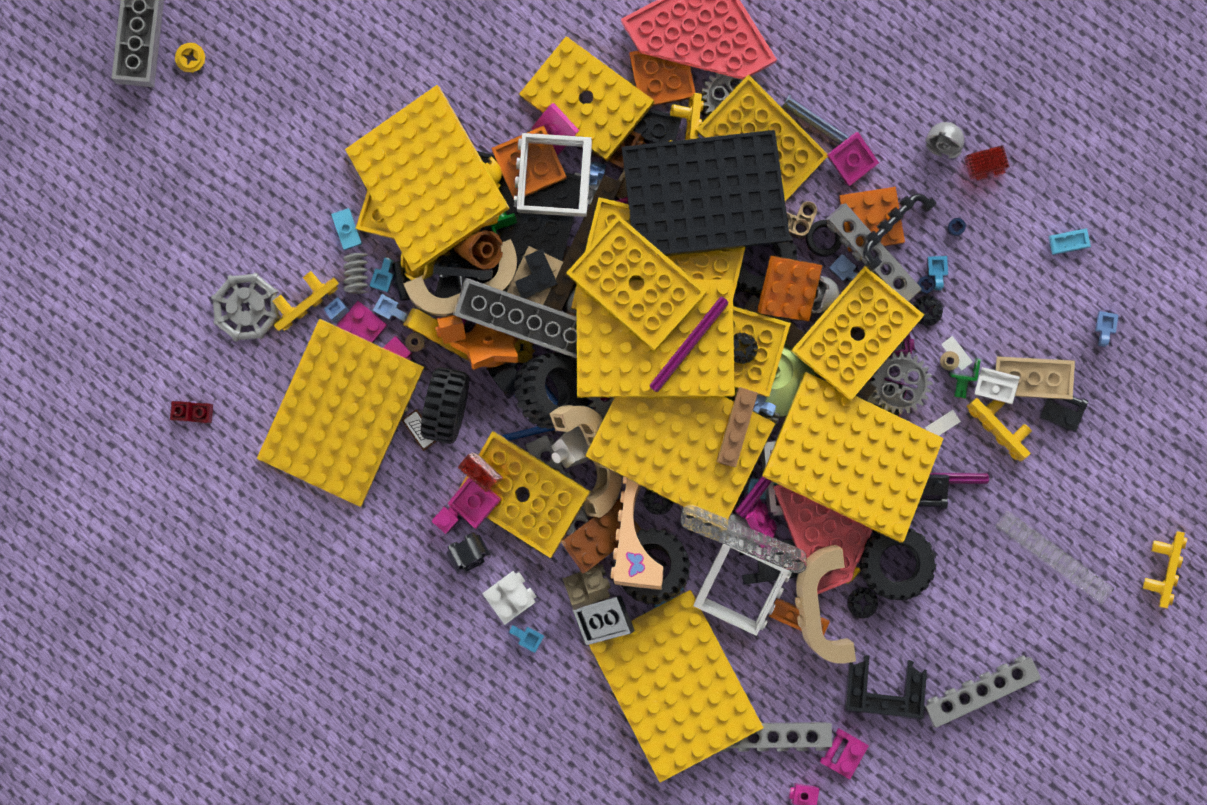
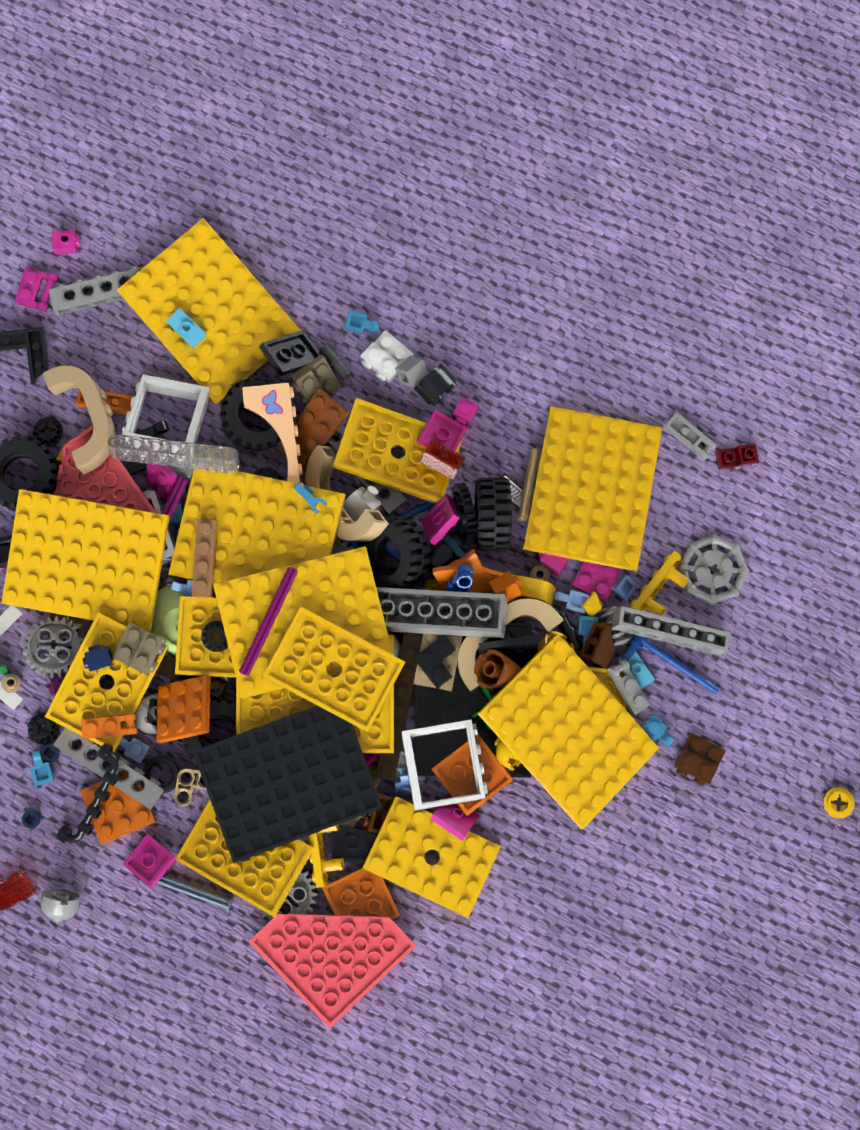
camera: 165 degrees right, 5 degrees down
(232, 443) = (690, 436): none -> light grey plate
(303, 252) = (670, 630): none -> light grey brick
(310, 128) = (699, 760): none -> reddish brown plate
(333, 255) = (640, 642): none -> blue bar
(344, 167) = (656, 730): none -> dark azure plate
(358, 211) = (628, 687): none -> light grey plate
(371, 299) = (592, 604): none -> yellow slope
(376, 256) = (599, 646): none -> reddish brown slope
(407, 421) = (528, 486): none -> tan axle
(472, 413) = (468, 519): none -> black gear
(488, 573) = (411, 371): none -> light grey brick
(491, 342) = (462, 579): none -> blue plate
(491, 391) = (454, 545): none -> dark azure plate
(497, 412) = (440, 519): none -> dark pink plate
(562, 603) = (335, 362): none -> dark grey pin
(622, 462) = (307, 493): none -> dark azure plate
(702, 670) = (186, 328): none -> medium azure plate
(819, 353) = (139, 649): none -> dark tan plate
(861, 353) = (98, 658): none -> dark blue brick
(865, 289) = (108, 726): none -> orange plate

